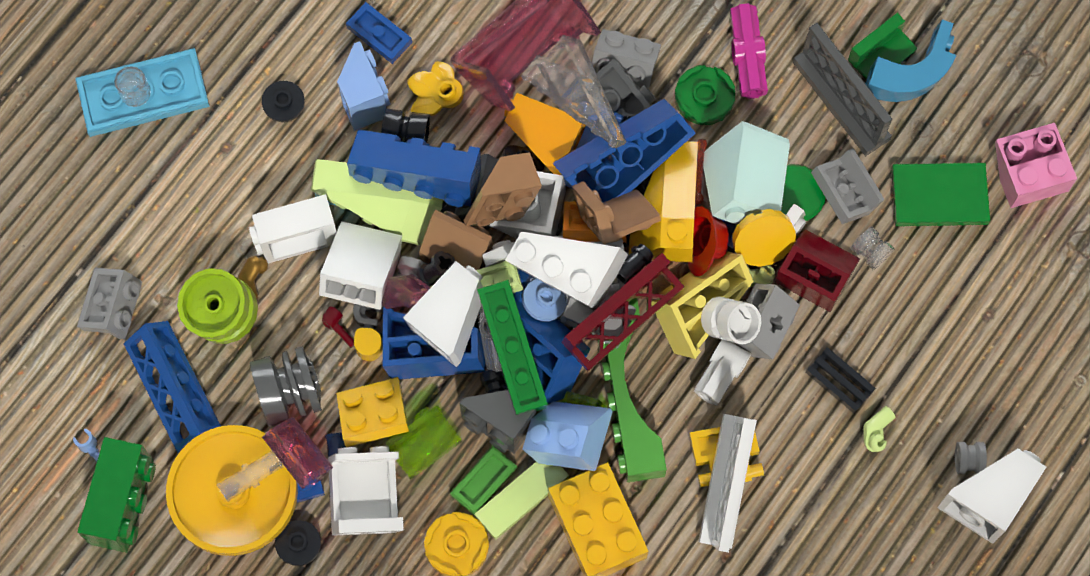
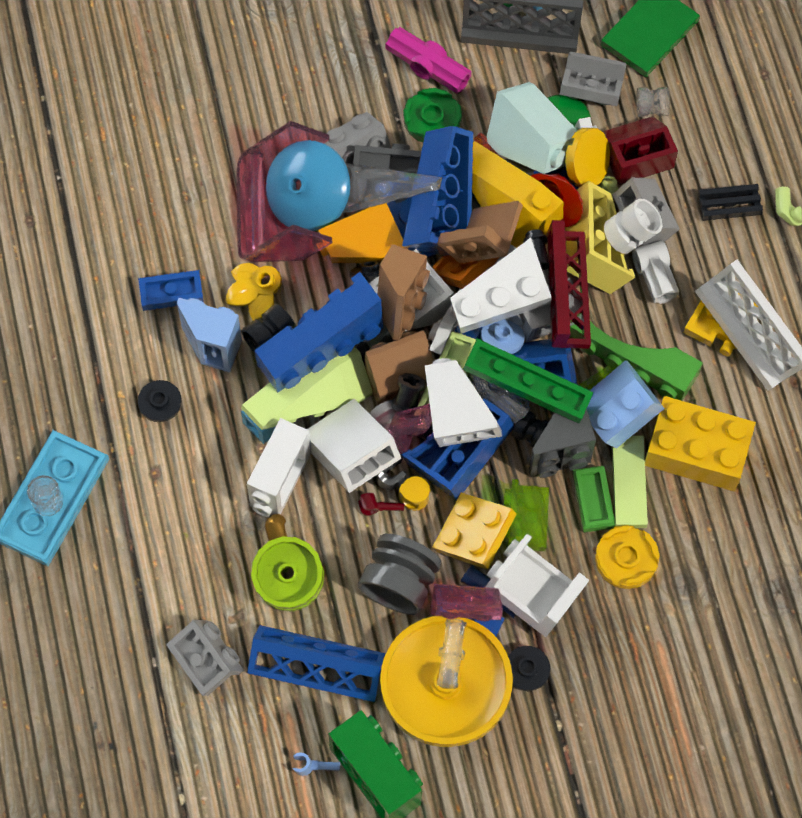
camera: 50 degrees left, 5 degrees down
(547, 54) = (322, 189): none -> dark azure dish

